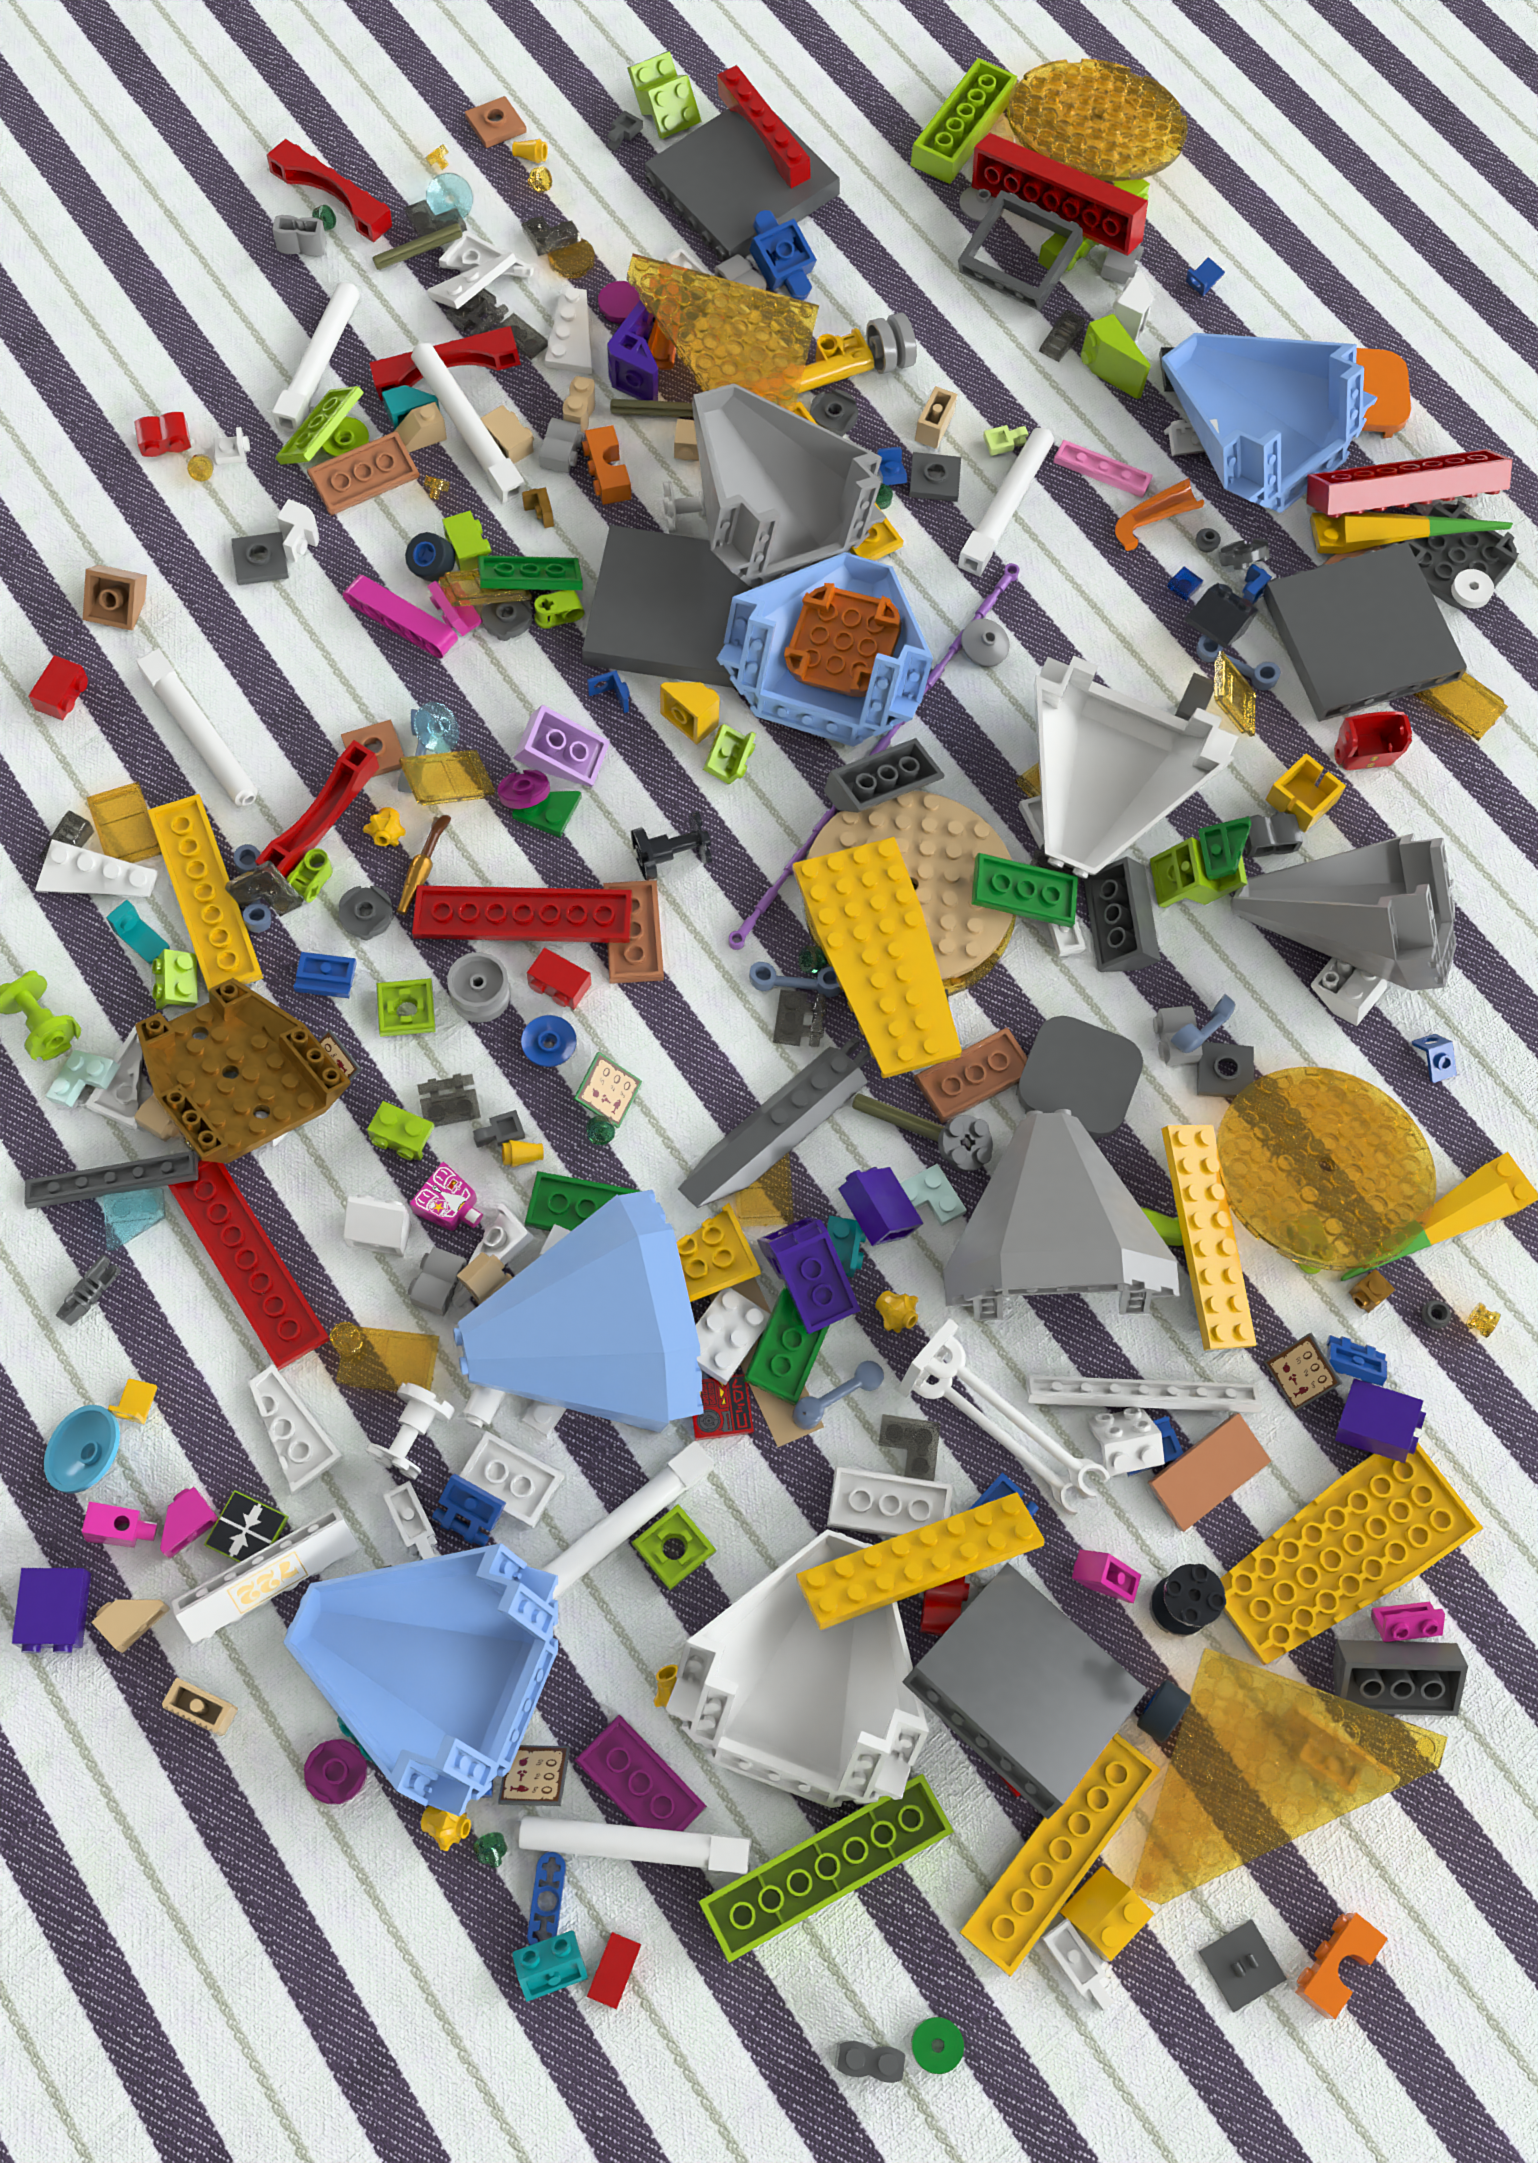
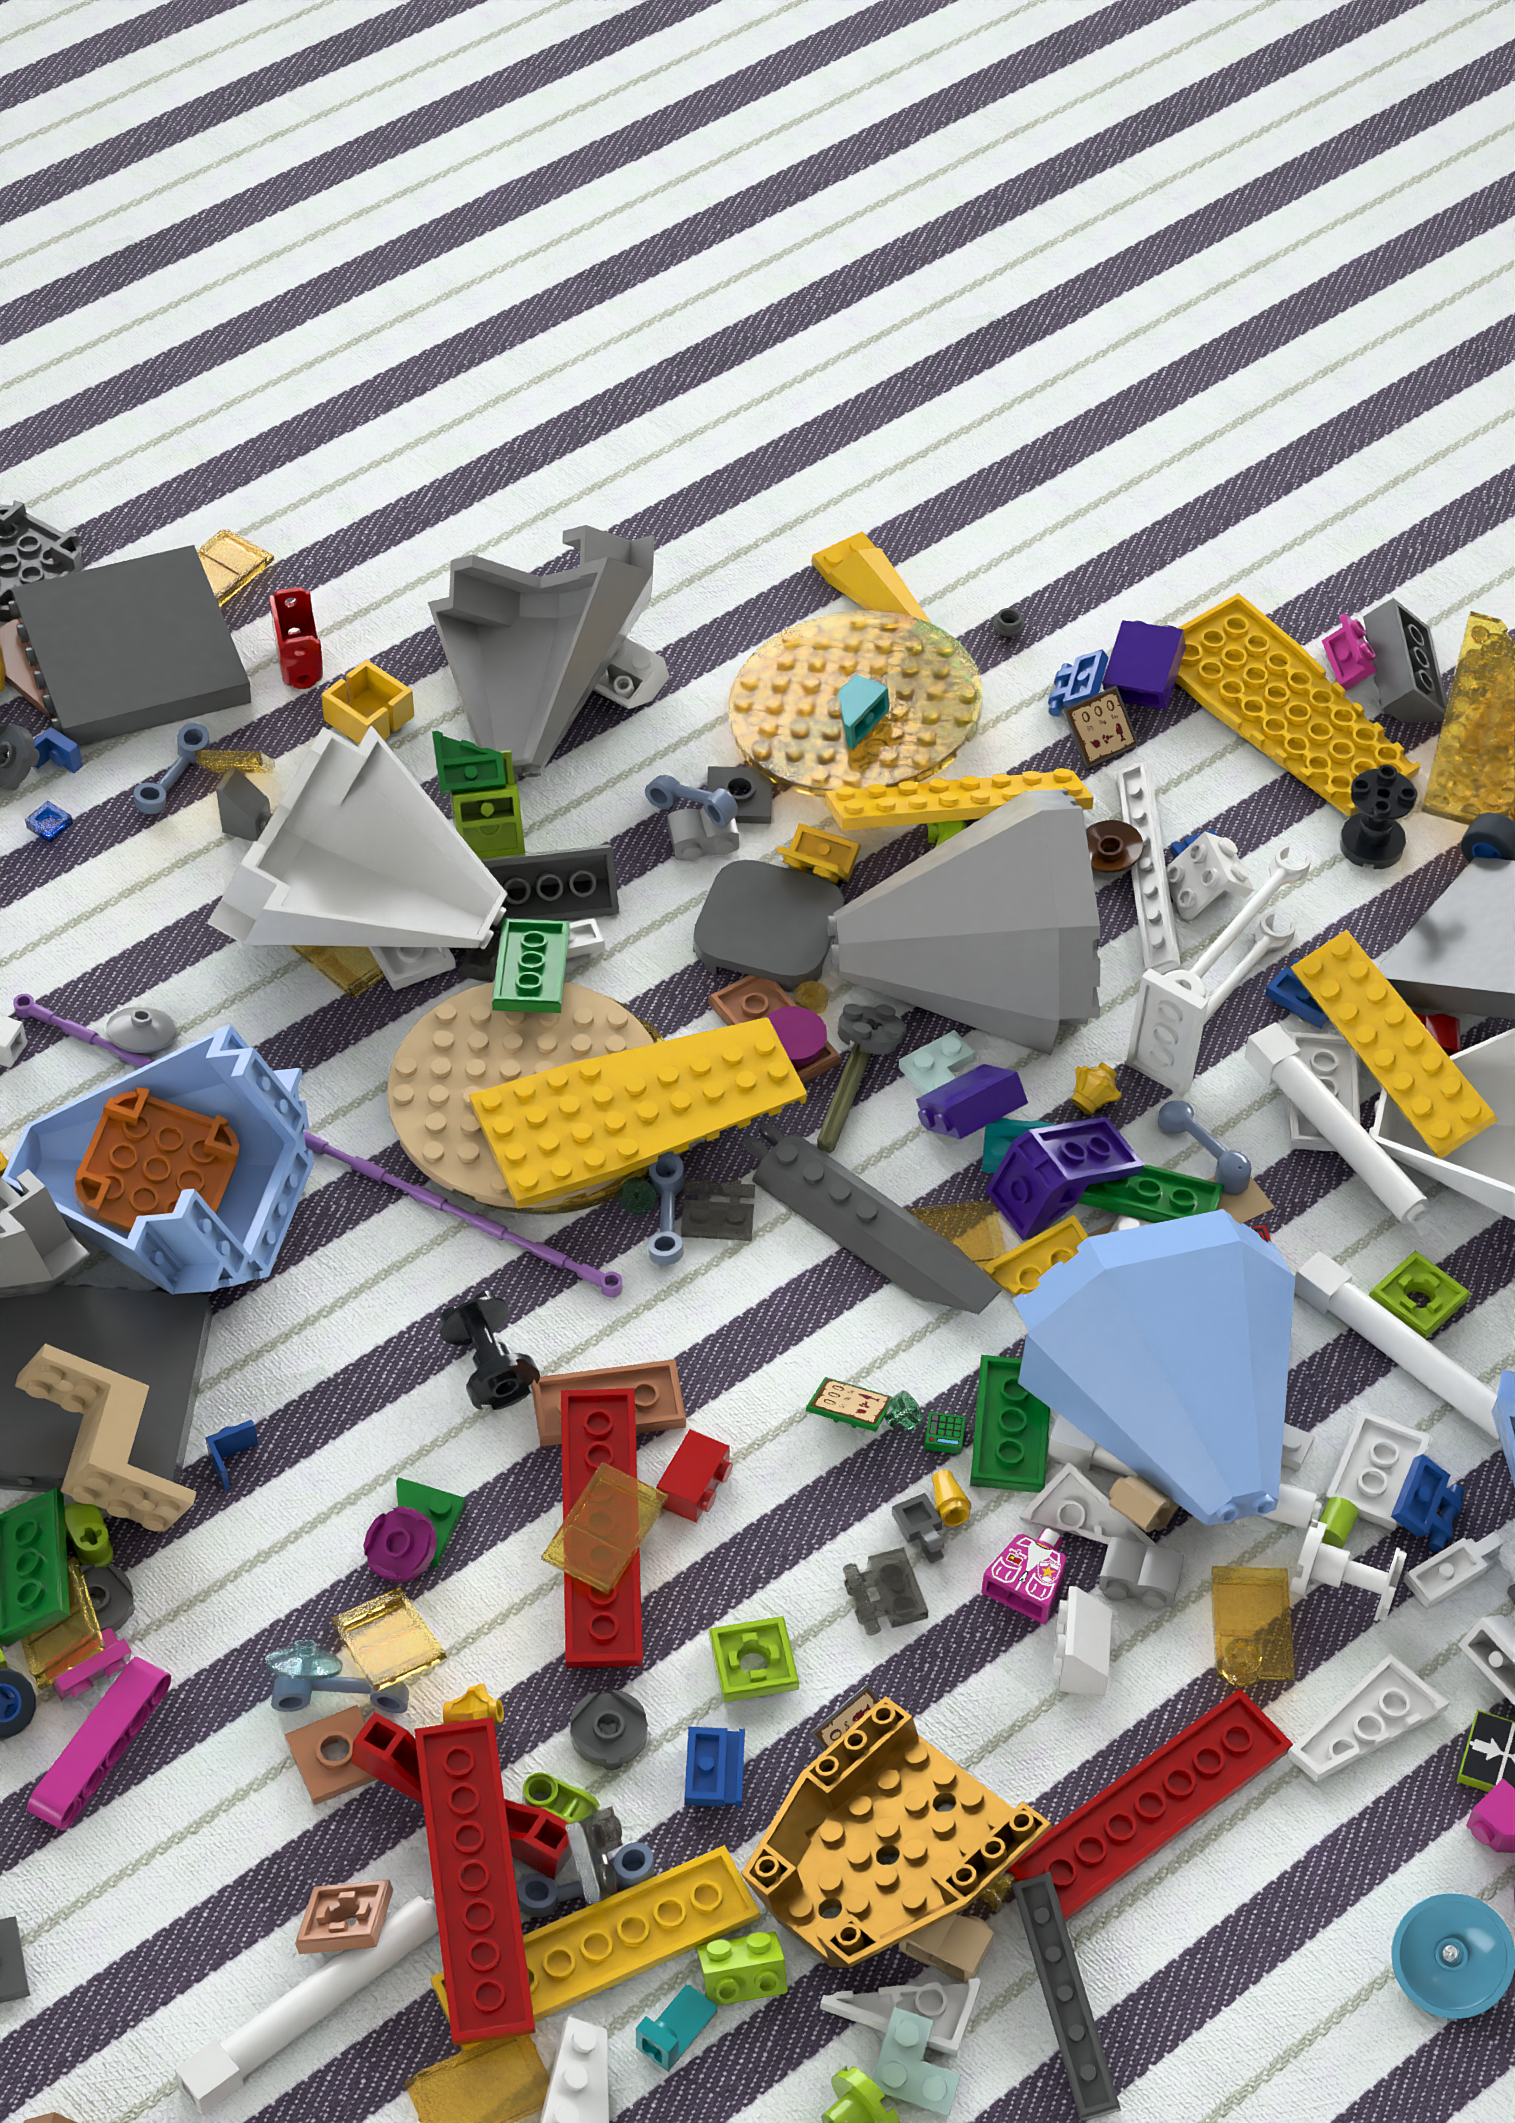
camera: 90 degrees left, 15 degrees down
(88, 1290) = (1232, 2001): dark grey hinge -> none
(131, 1214) = (1109, 1964): clear light blue wing -> none
(135, 1401) = (1370, 1914): yellow bracket -> none
(250, 811) = (474, 1882): none -> red plate
(258, 738) = (331, 1904): none -> nougat piece
(399, 1131) = (942, 1635): lime bracket -> none
(421, 864) = (526, 1664): pearl gold piece -> none
(463, 1436) = (1340, 1518): none -> lime piece
(478, 987) = (721, 1562): light grey wheel -> none
(512, 911) = (605, 1528): none -> clear yellow piece
(544, 1030) = (790, 1466): blue dish -> none
(561, 747) = (327, 1508): lavender slope -> none
(582, 1159) = (945, 1433): none -> green tile
(601, 598) = (105, 1438): none -> tan bracket
(690, 708) = (272, 1341): yellow slope -> none
(729, 754) = (331, 1300): lime bracket -> none
(881, 777) = (378, 1115): dark grey slope -> none
(903, 1466) = (1278, 1061): none -> white brick
(915, 1436) = (1237, 1078): clear smoke plate -> none
(959, 1082) = (800, 1033): none -> magenta tile
(1005, 1105) = (812, 996): none -> clear yellow tile
(1106, 1575) = (1358, 900): dark pink slope -> none
(1143, 1117) = (821, 852): none -> yellow bracket
(1169, 1352) = (1113, 846): none -> reddish brown dish
(1209, 1471) = (1225, 809): nougat tile -> none
(1222, 615) = (108, 777): black slope -> none
(1273, 835) = (416, 736): dark grey brick -> none
(1298, 1155) = (861, 707): none -> slope
(1371, 1291) = (994, 675): pearl gold bracket -> none
(1439, 1056) = (699, 602): bracket -> none
(1477, 580) = (70, 541): white piece -> none
(1483, 1320) = (1011, 584): clear yellow wheel -> none

